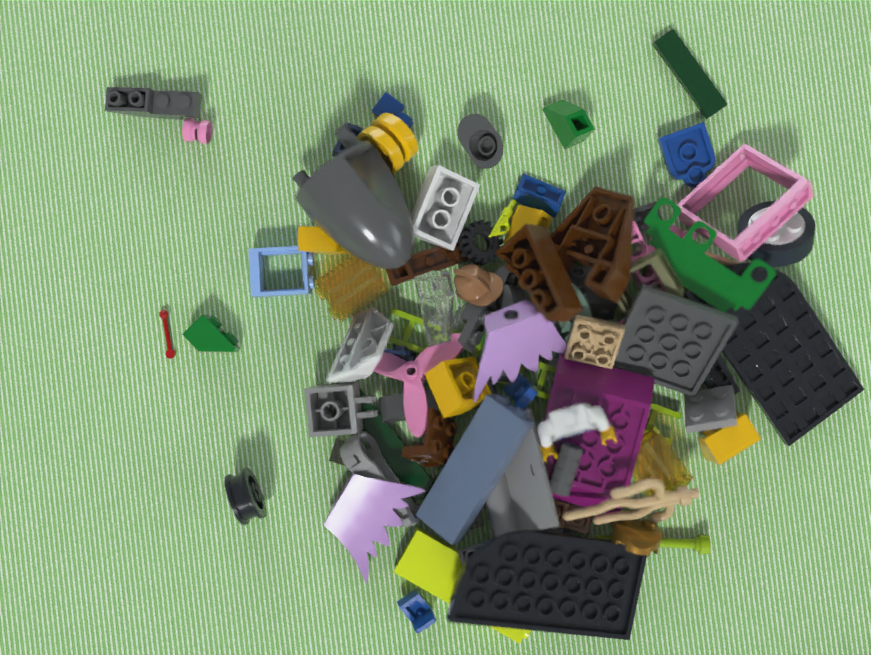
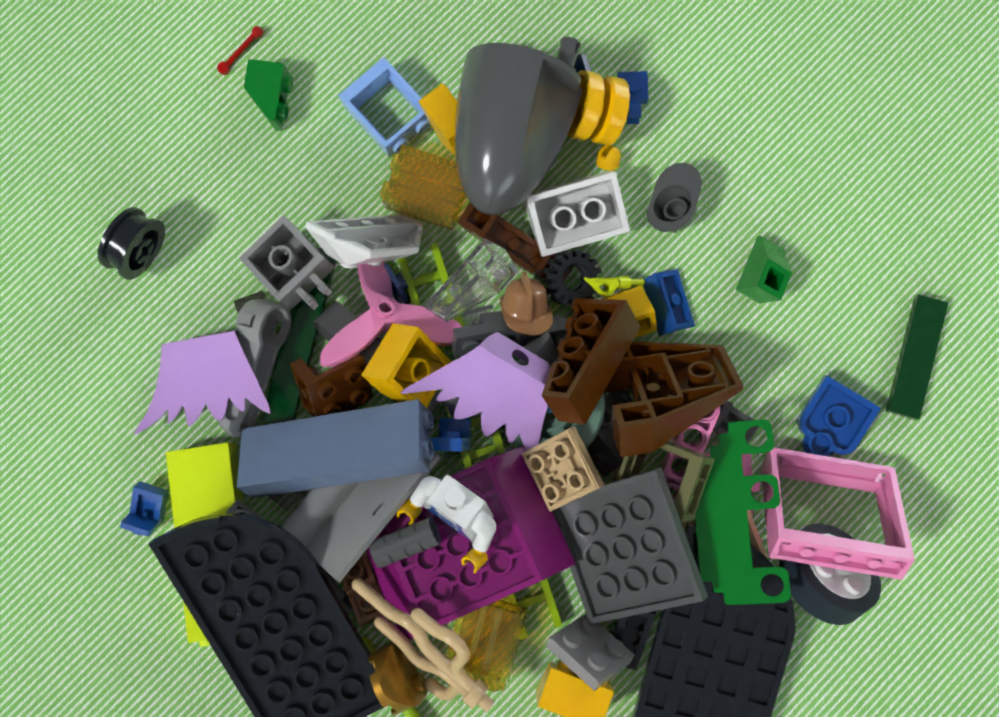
camera: 55 degrees right, 5 degrees down
(425, 158) = (608, 158): none -> yellow hinge

